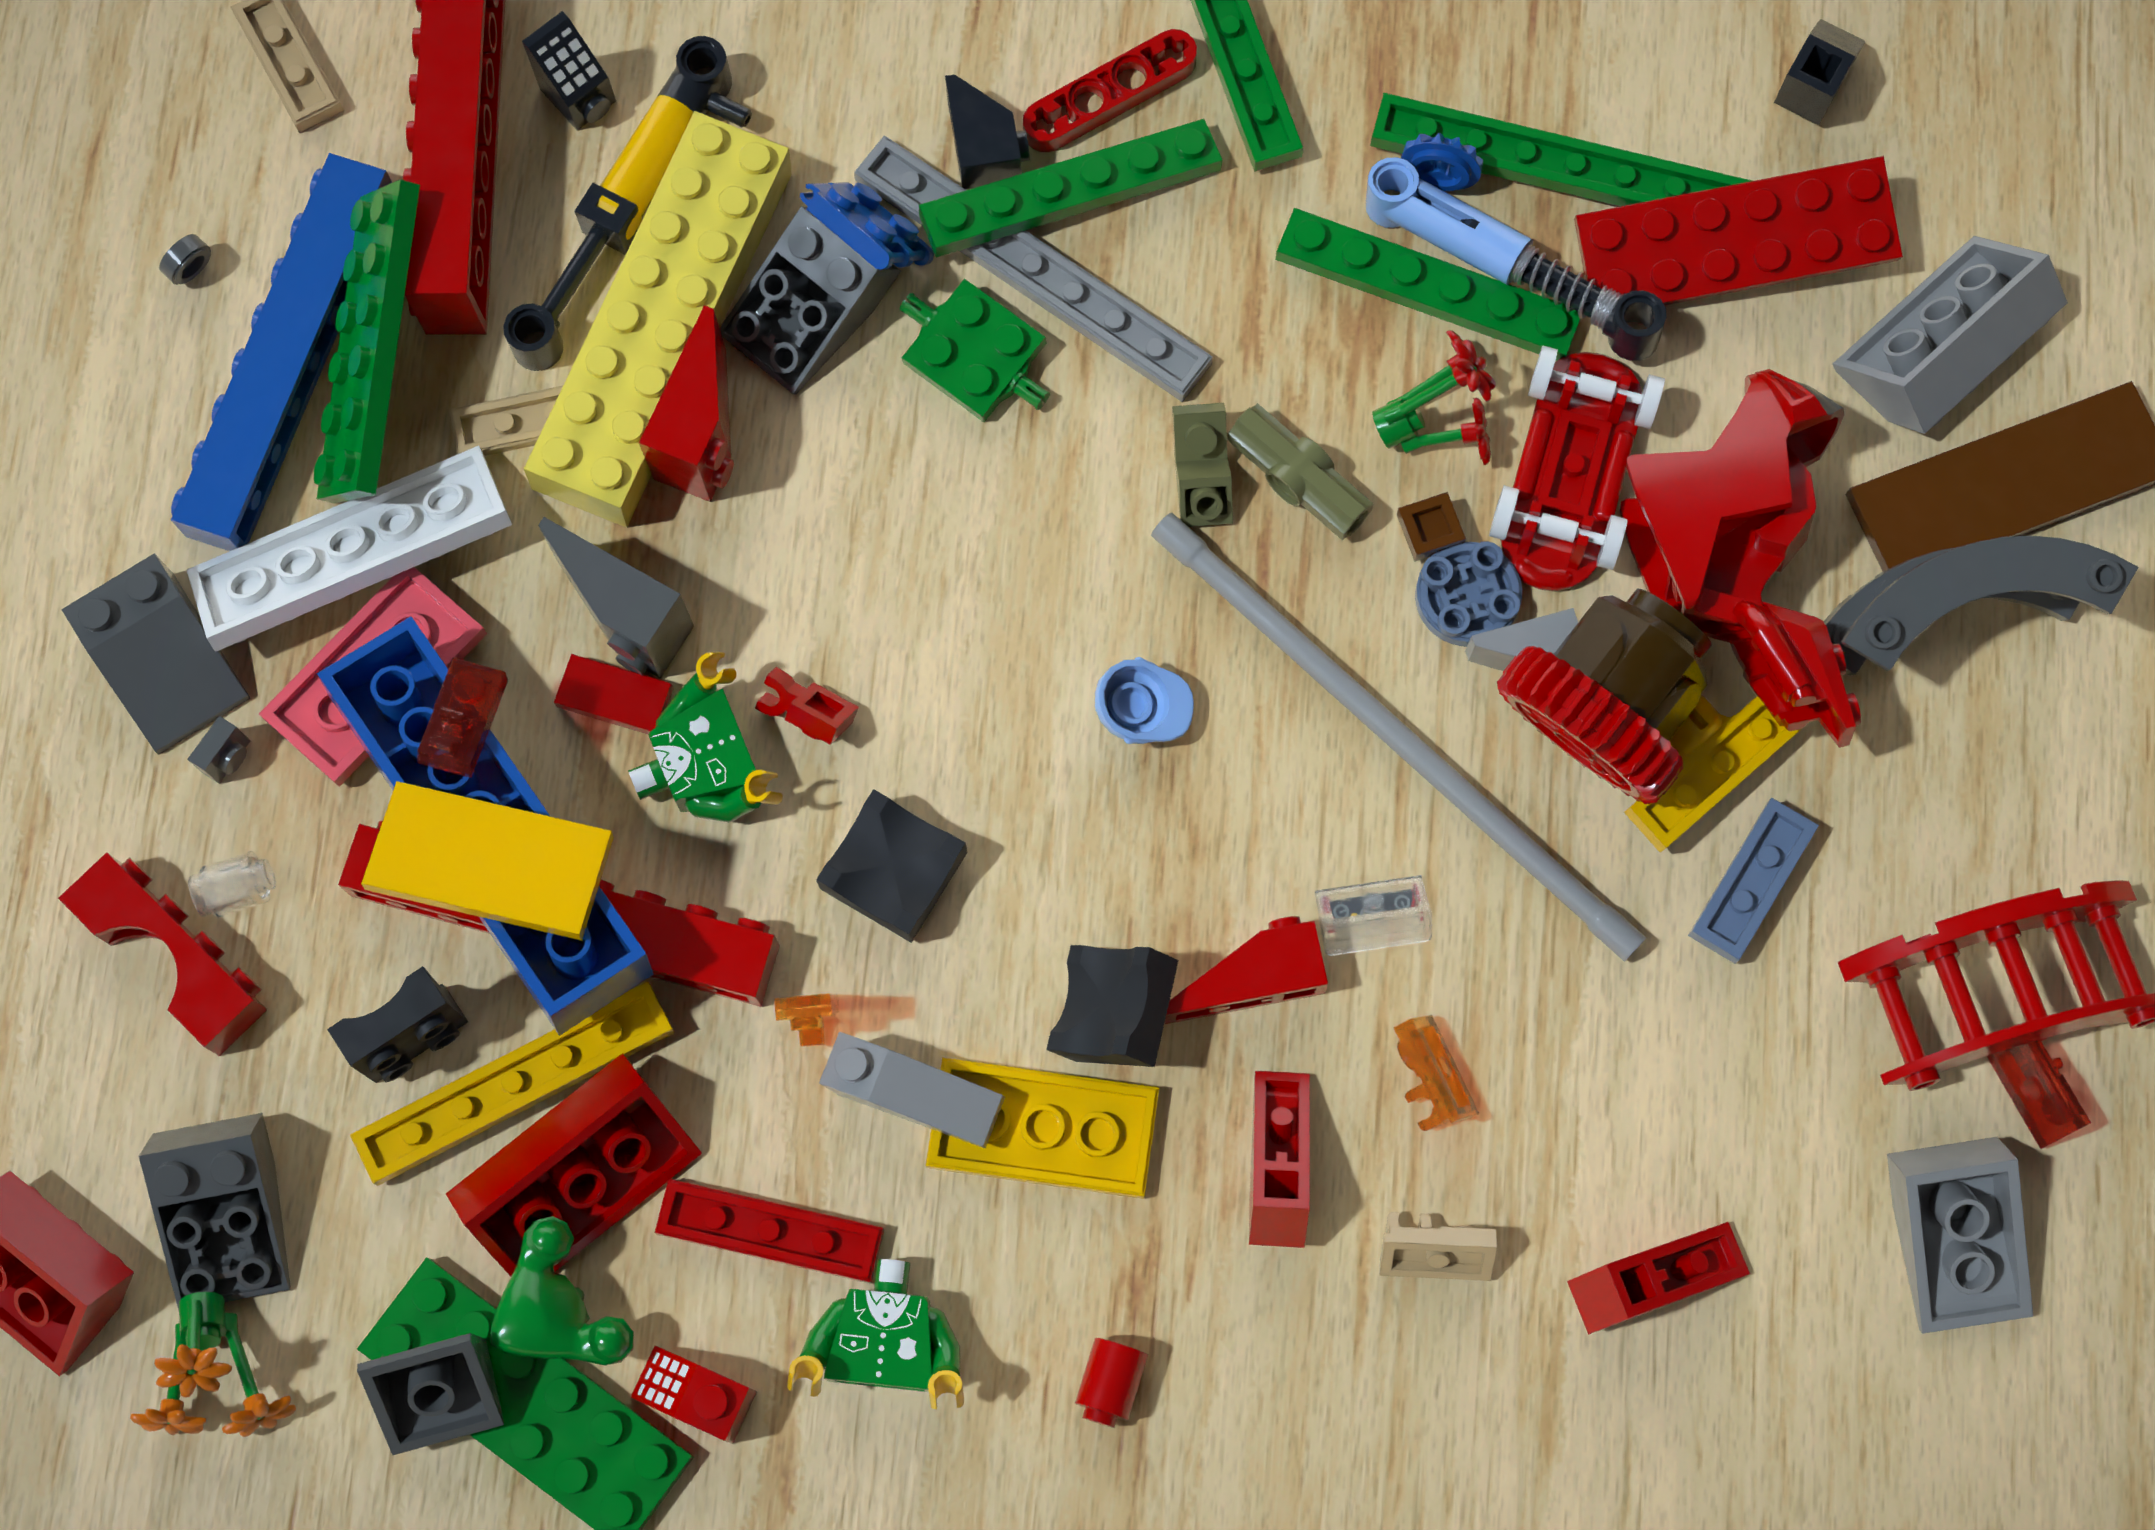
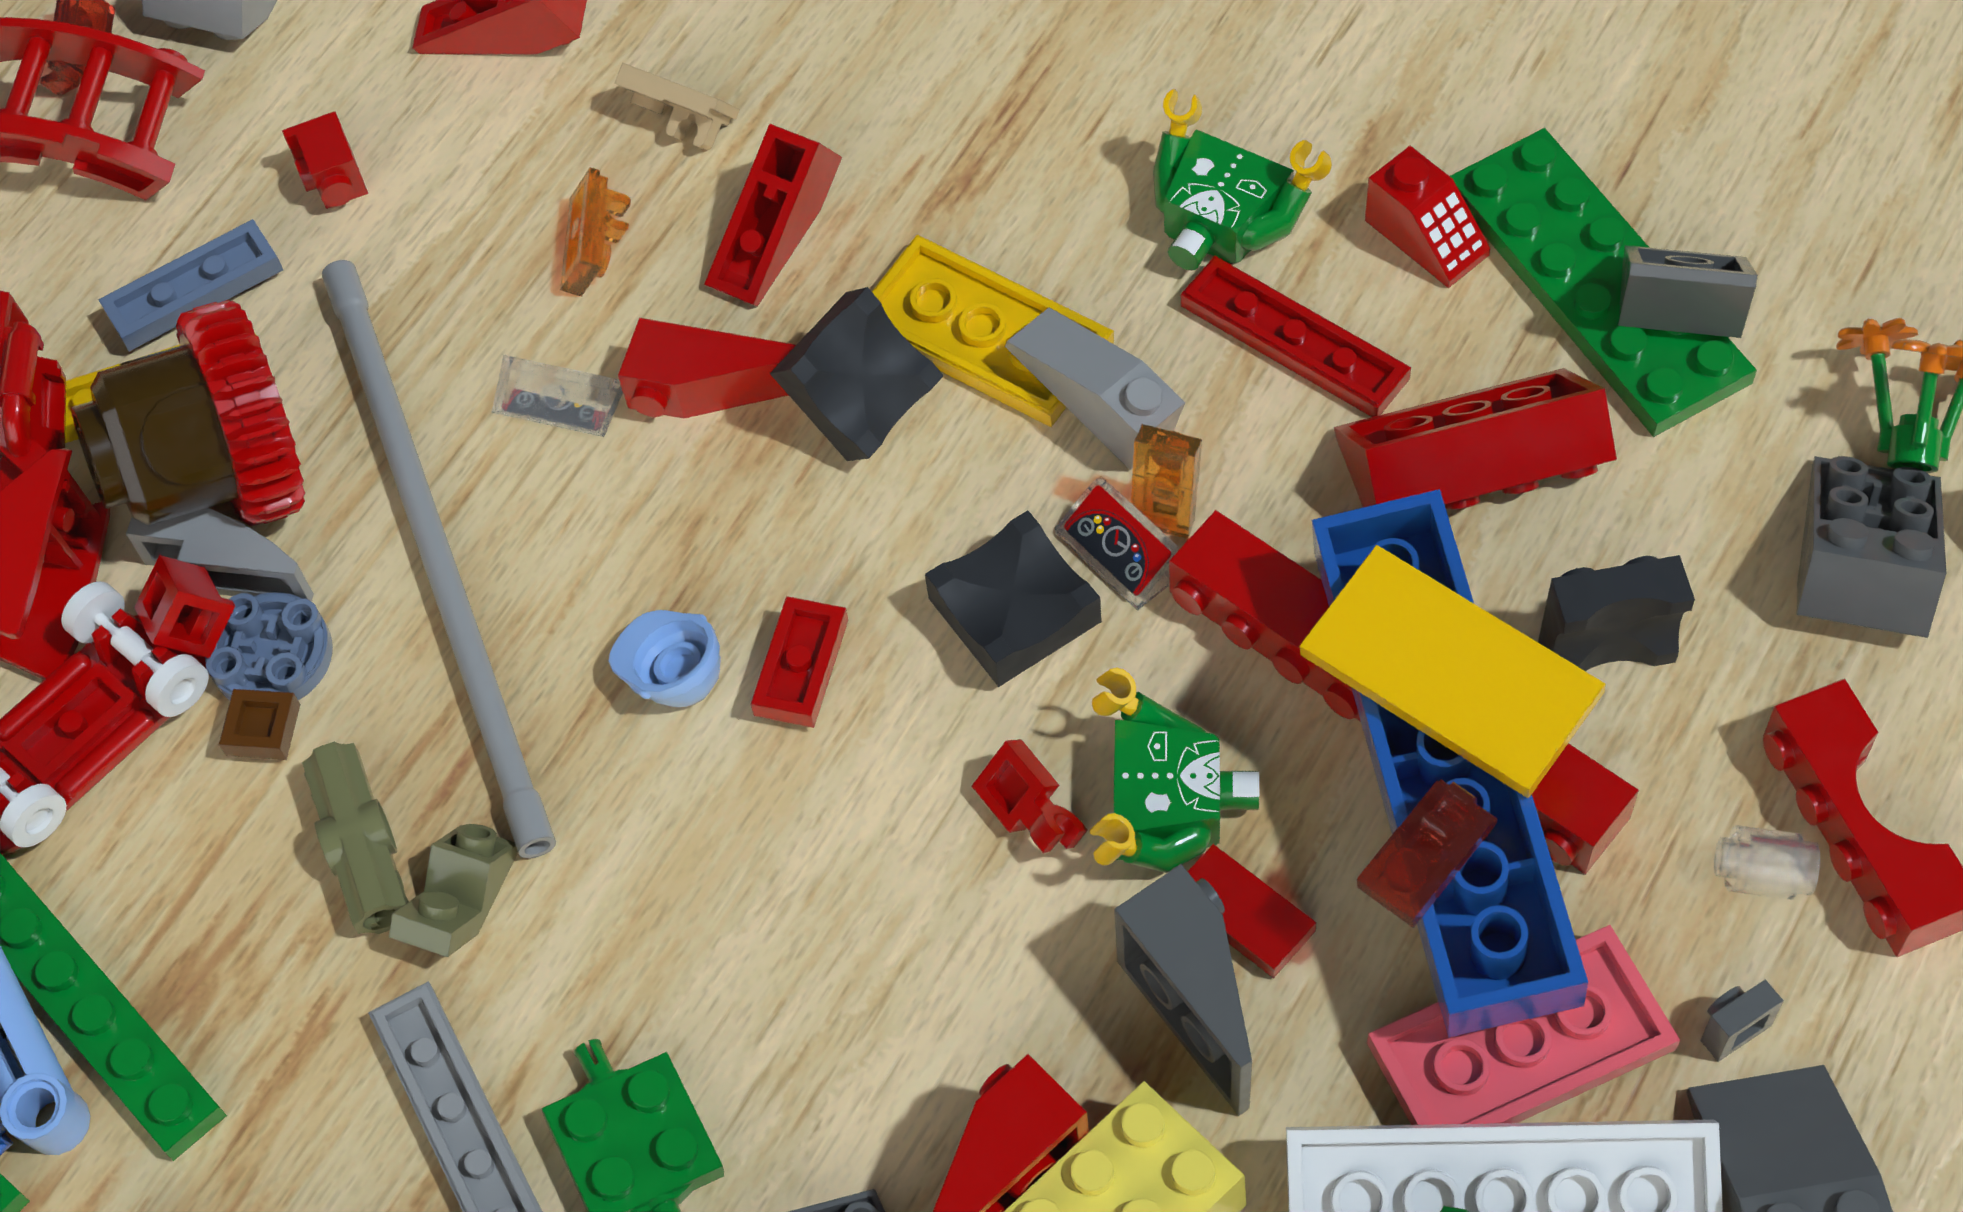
camera: 150 degrees left, 15 degrees down
(510, 1085) = (1559, 541): yellow plate -> none
(544, 1311) = (1547, 309): green head -> none
(833, 960) = (1118, 543): none -> slope
(1039, 749) = (799, 662): none -> red plate
(1110, 1382) = (1026, 102): red brick -> none
(1402, 418) = (213, 840): plant -> none
(1541, 570) = (183, 607): none -> red brick
(1714, 1049) = (325, 160): none -> red brick

